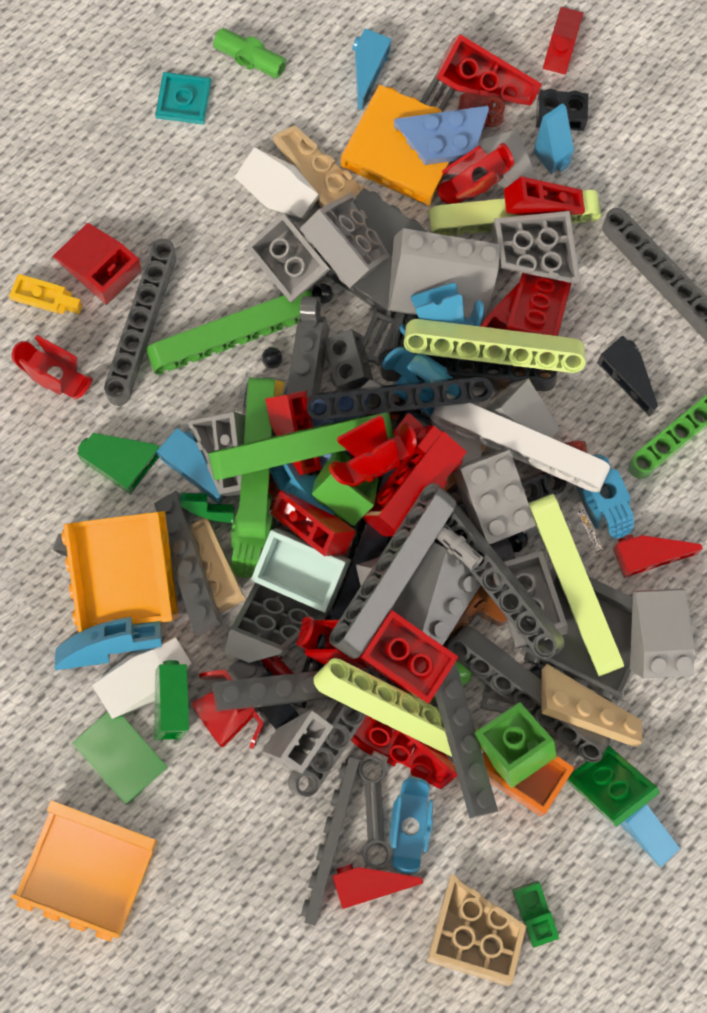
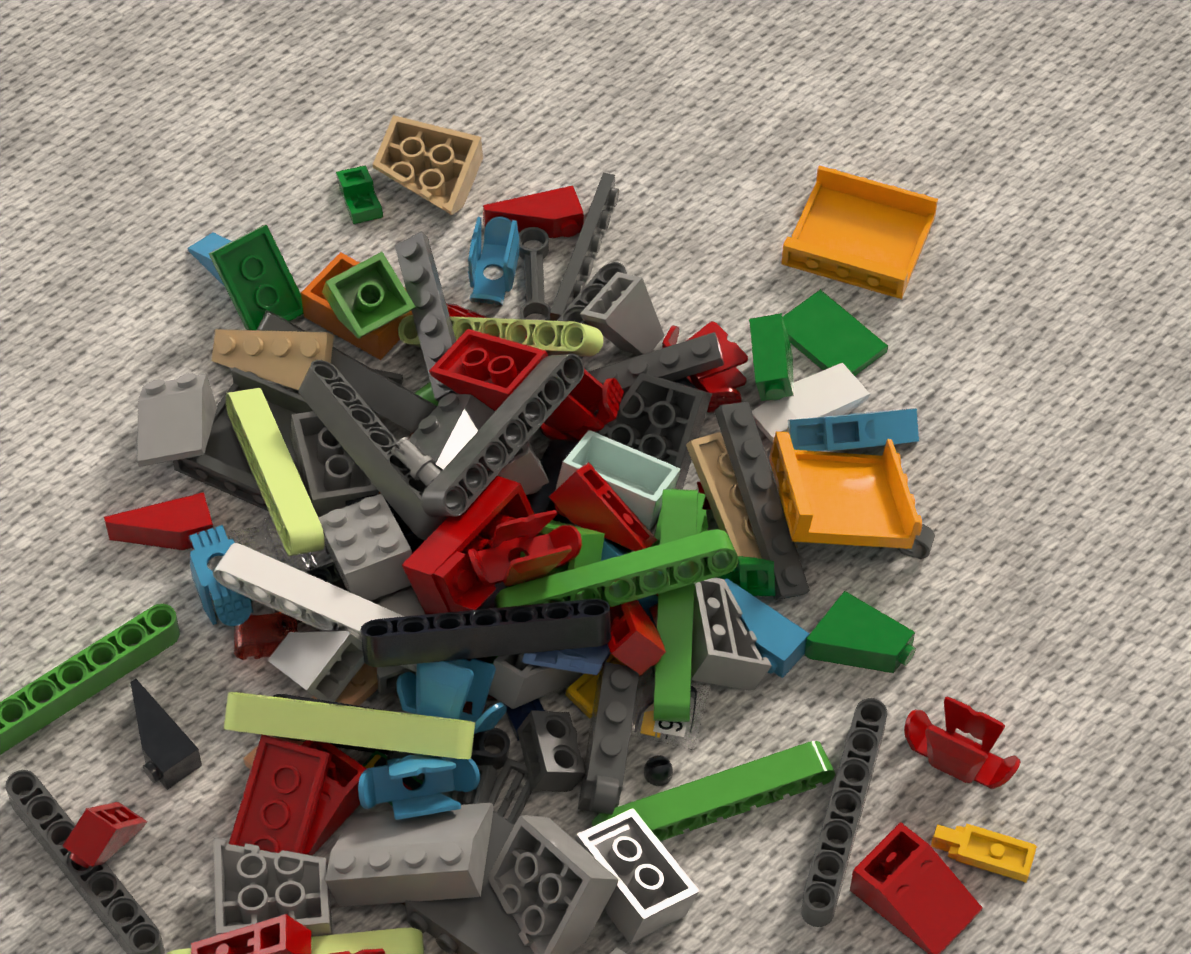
camera: 175 degrees left, 20 degrees down
(654, 285) = (102, 833): none -> red slope

